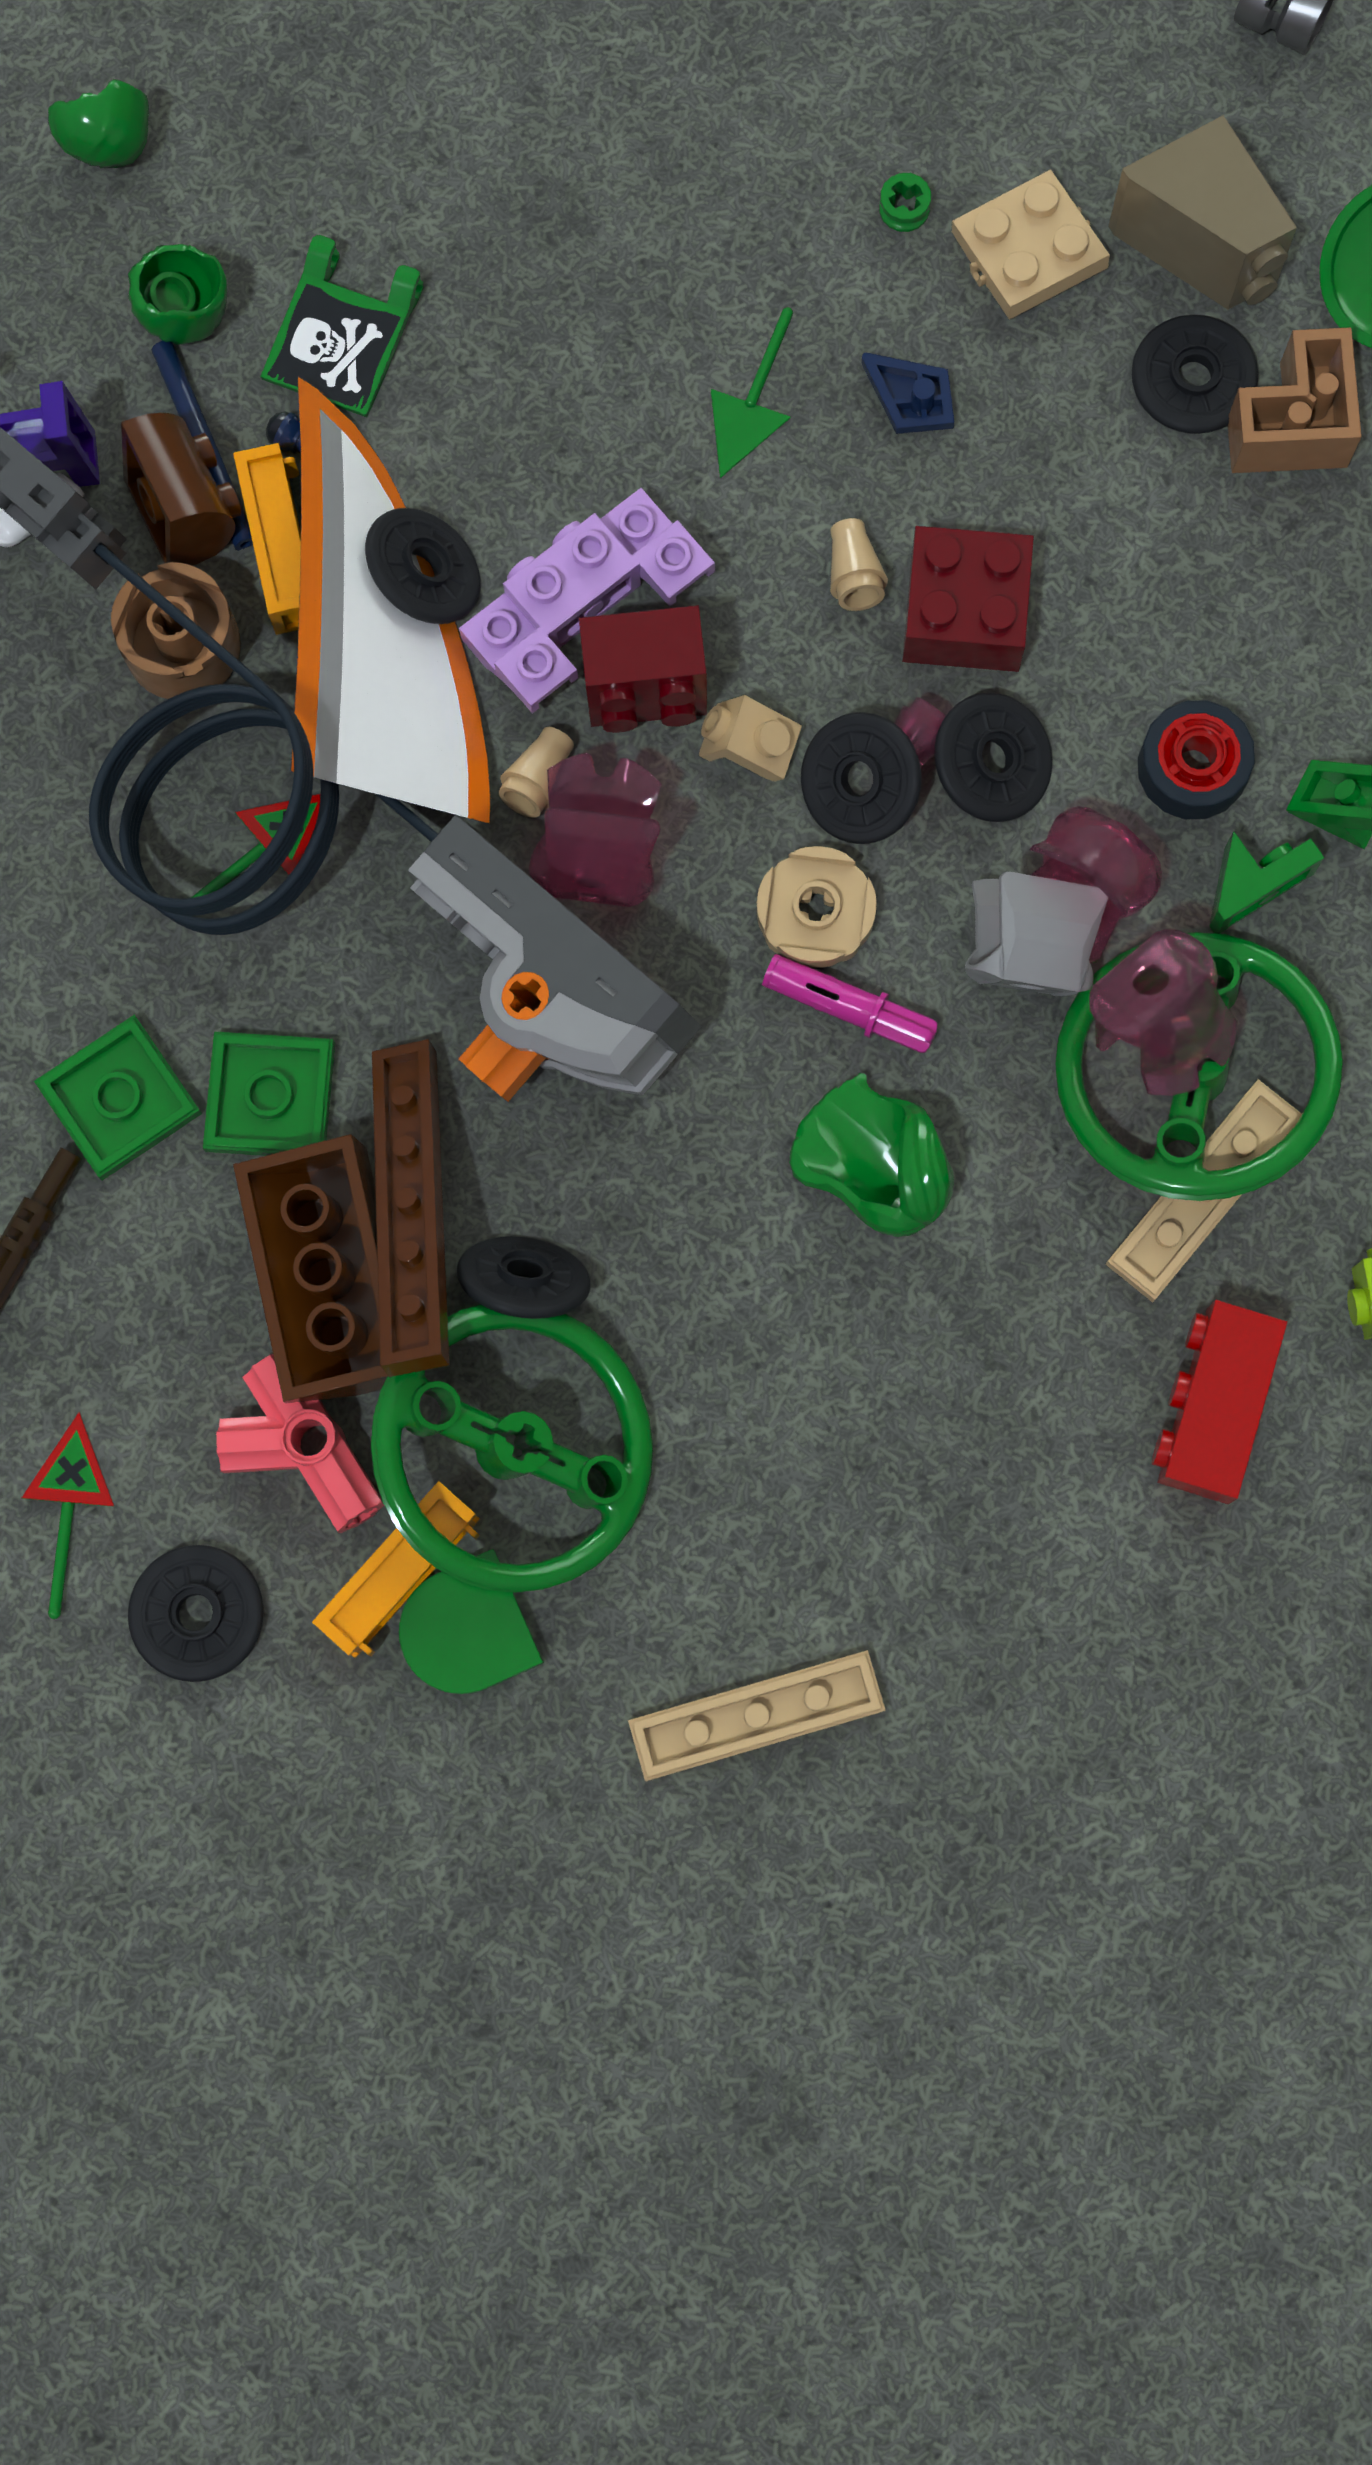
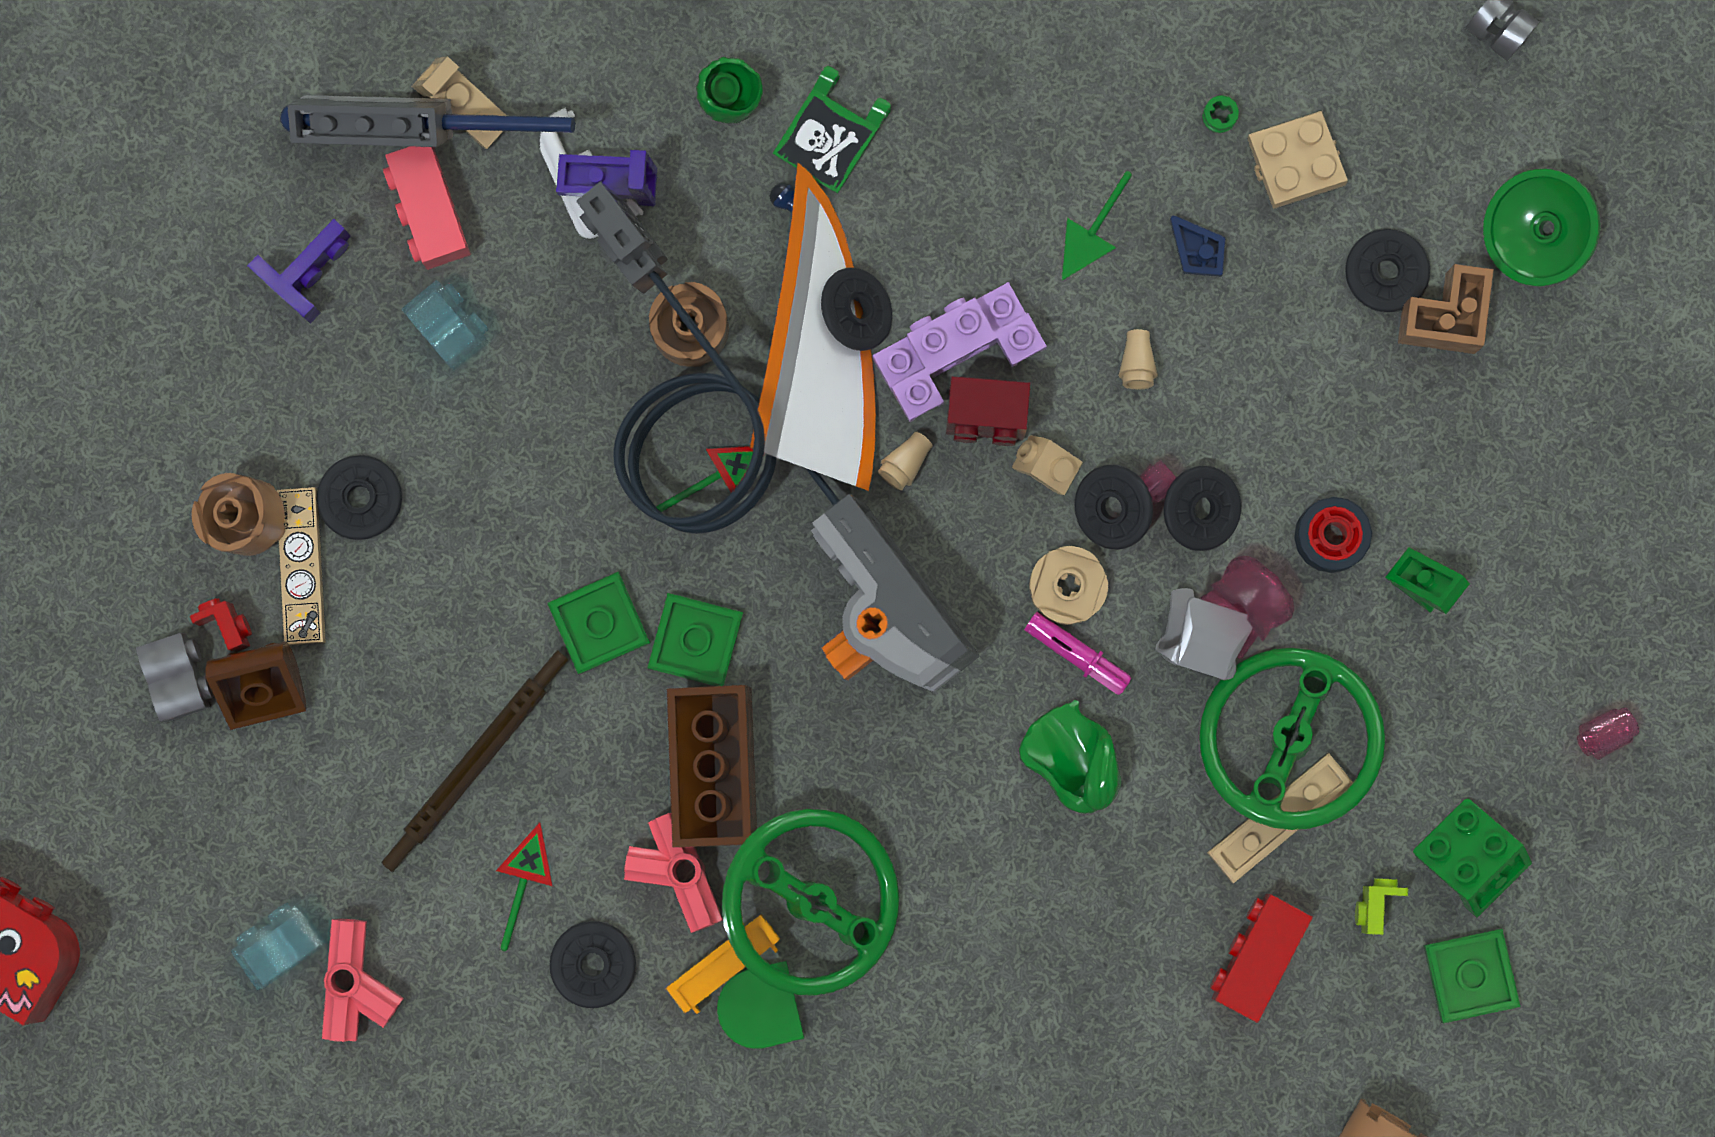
camera: 10 degrees right, 5 degrees up
(175, 490) = (705, 228): reddish brown brick -> none
(191, 413) = (727, 194): dark blue piece -> none
(273, 529) = (764, 267): light orange container -> none
(409, 1210) = (773, 738): reddish brown plate -> none
(493, 1271) = (813, 793): black wheel -> none
(598, 833) = (936, 514): clear pink piece -> none
(756, 1715) = (931, 1096): tan tile -> none
(968, 598) = (1206, 399): dark red brick -> none
(1168, 1008) = (1280, 720): clear pink piece -> none
(1206, 216) = (1416, 170): dark tan slope -> none
(1246, 887) = (1346, 627): green slope -> none

